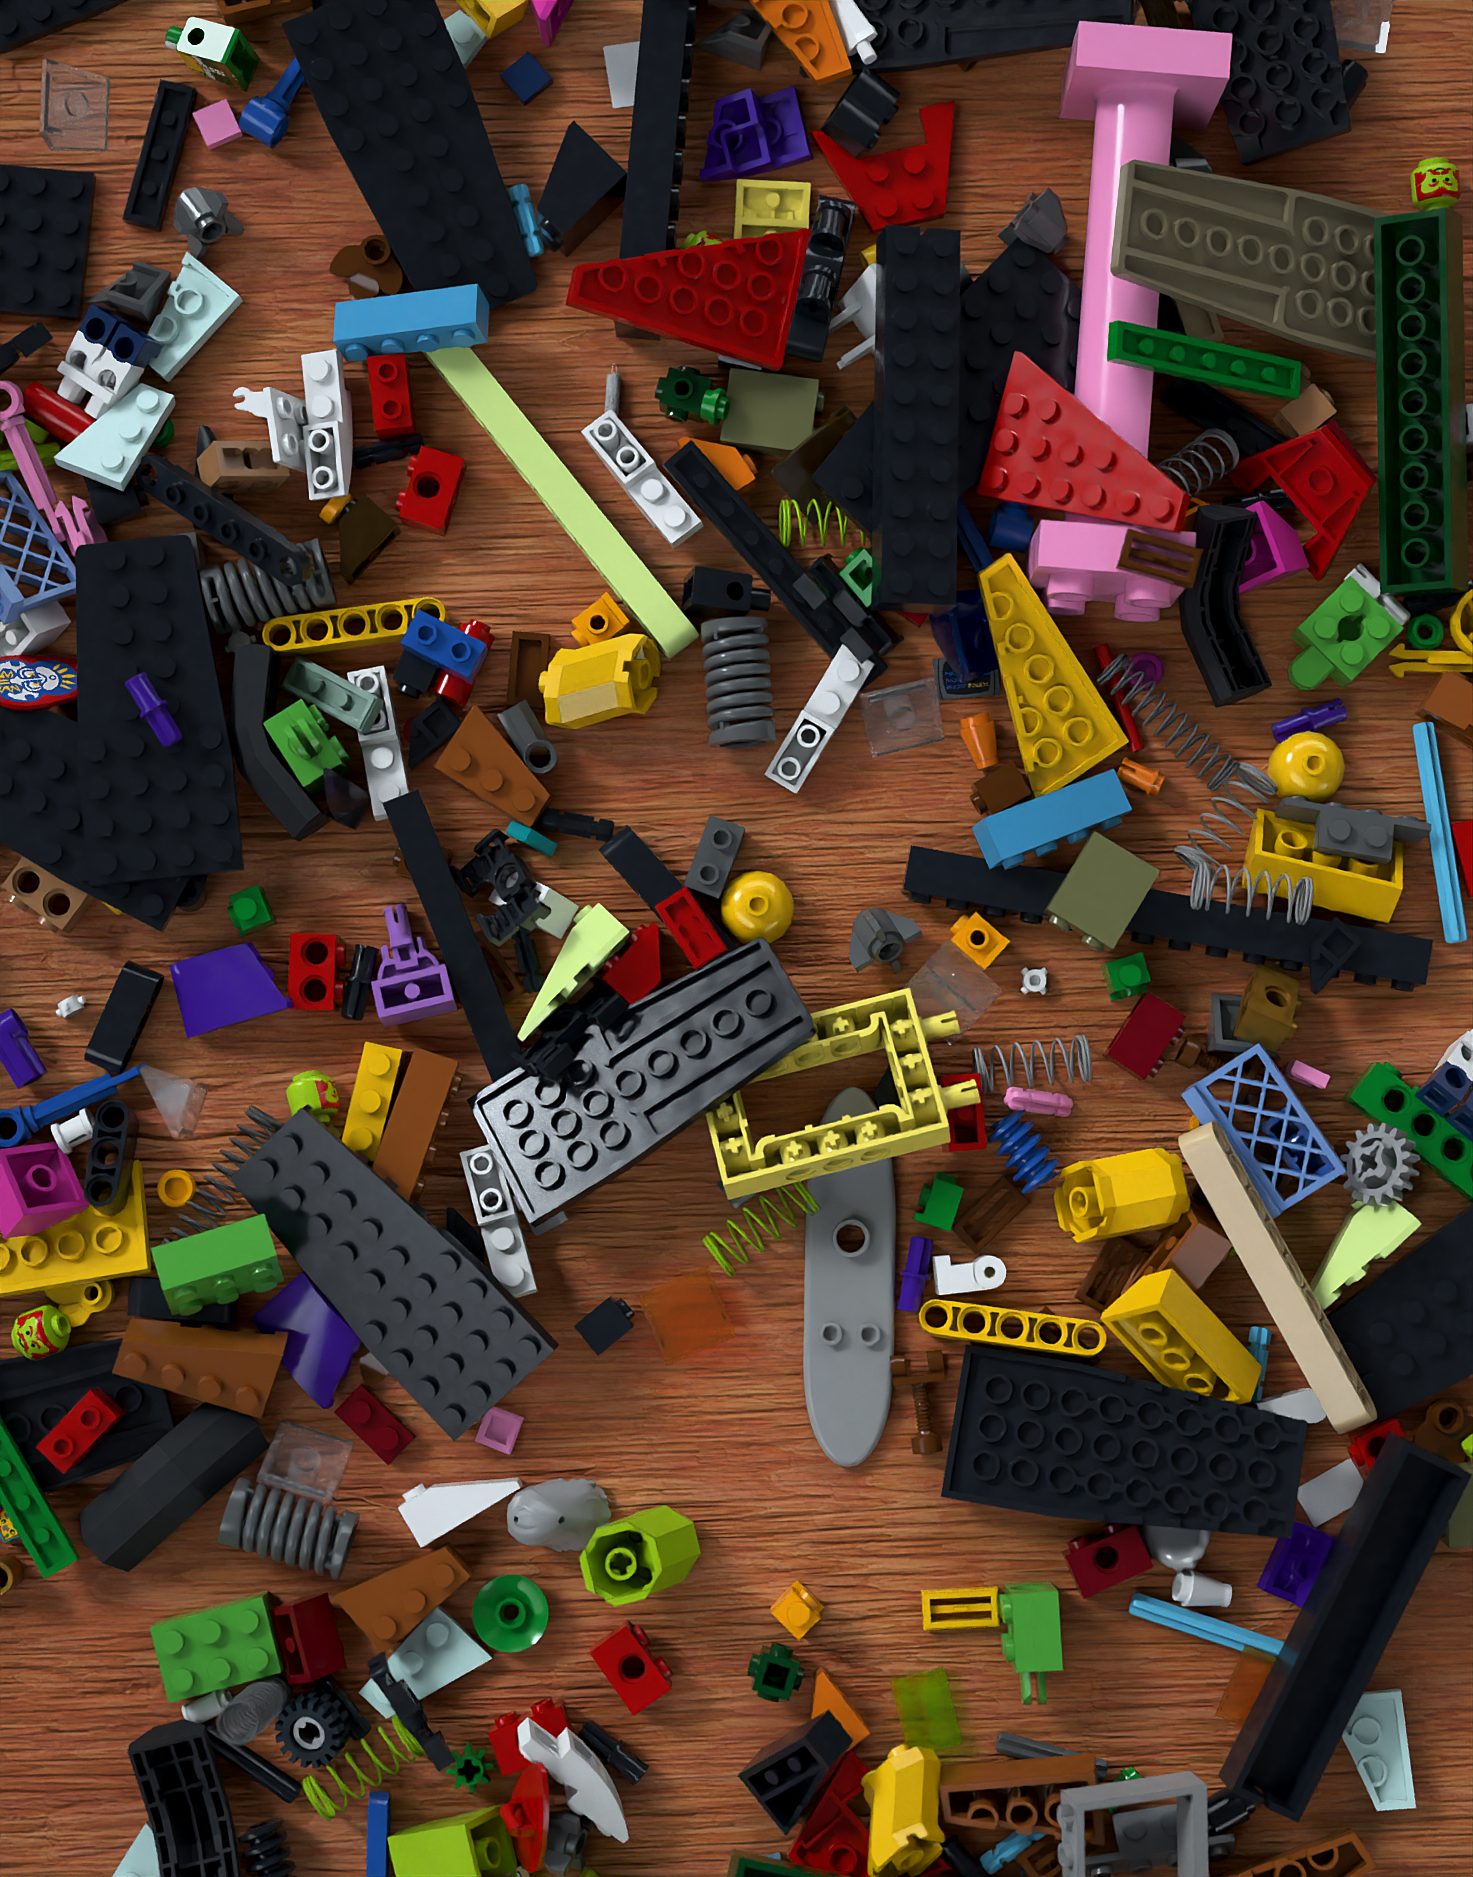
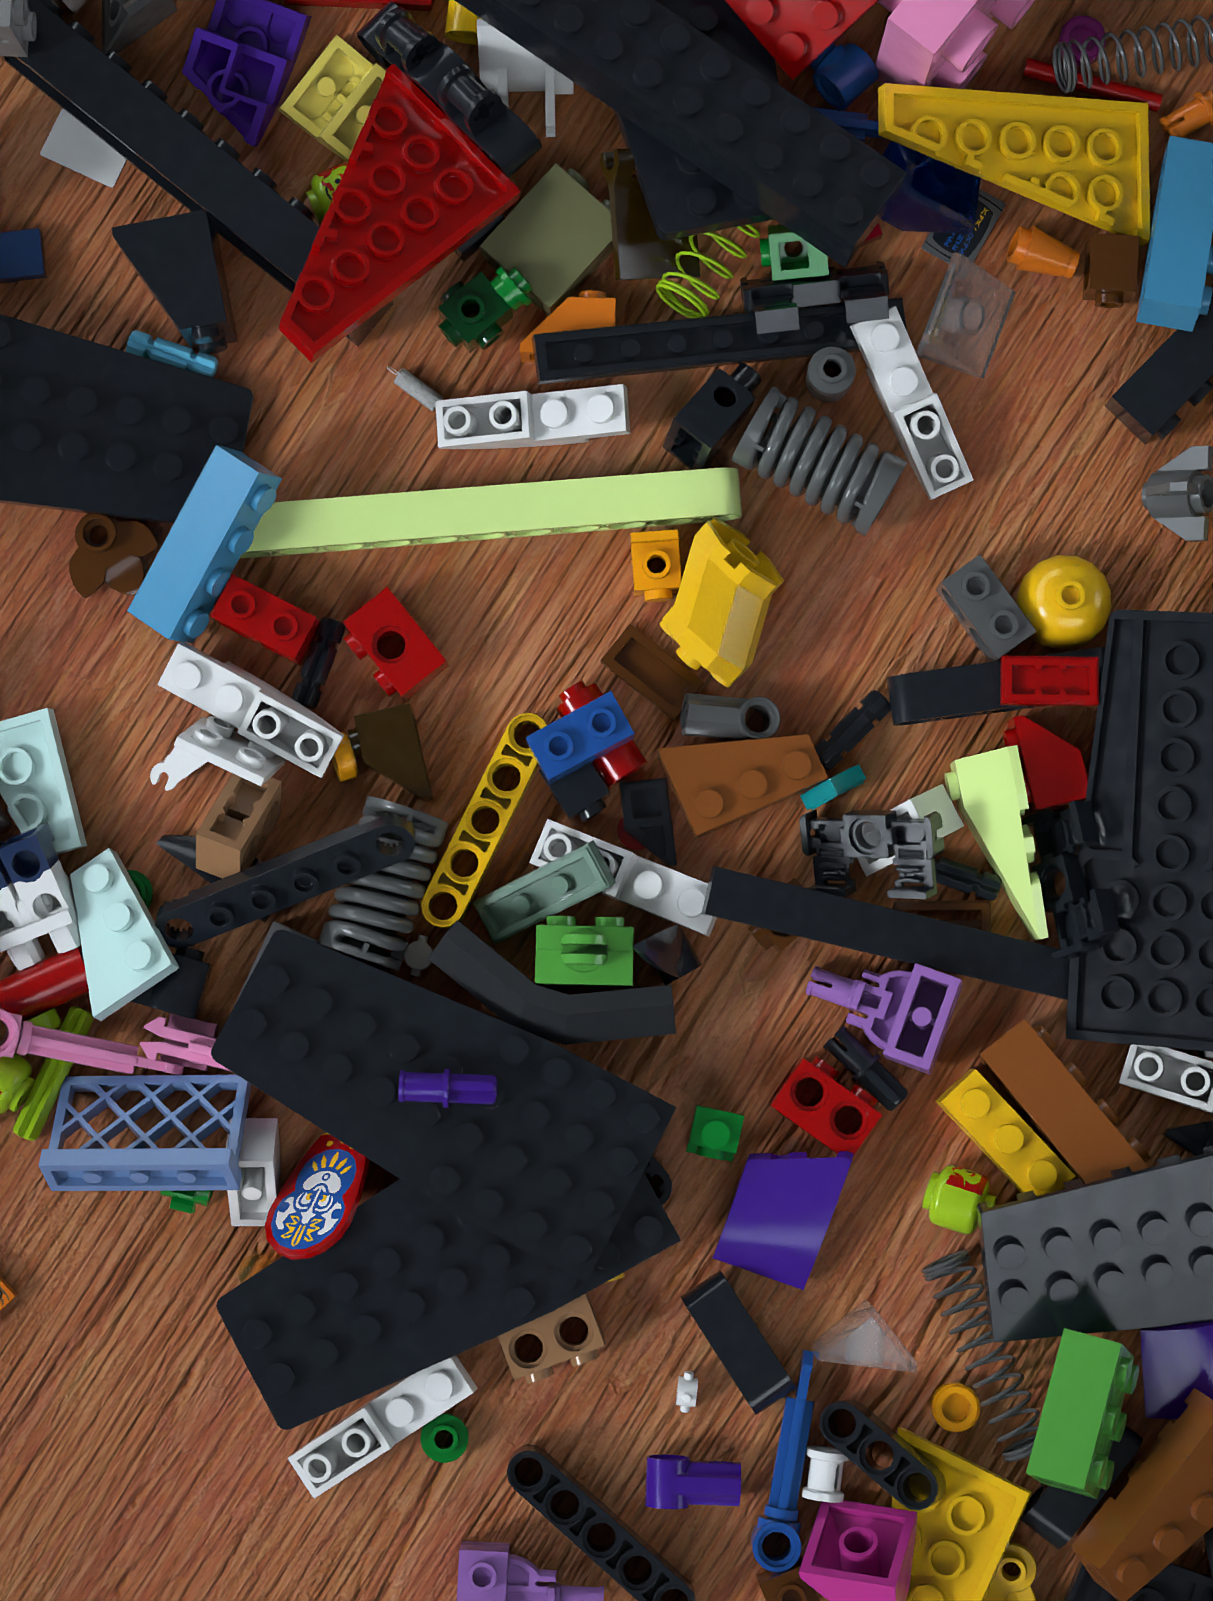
camera: 50 degrees left, 0 degrees up
(802, 664) = (830, 388): none -> dark grey brick

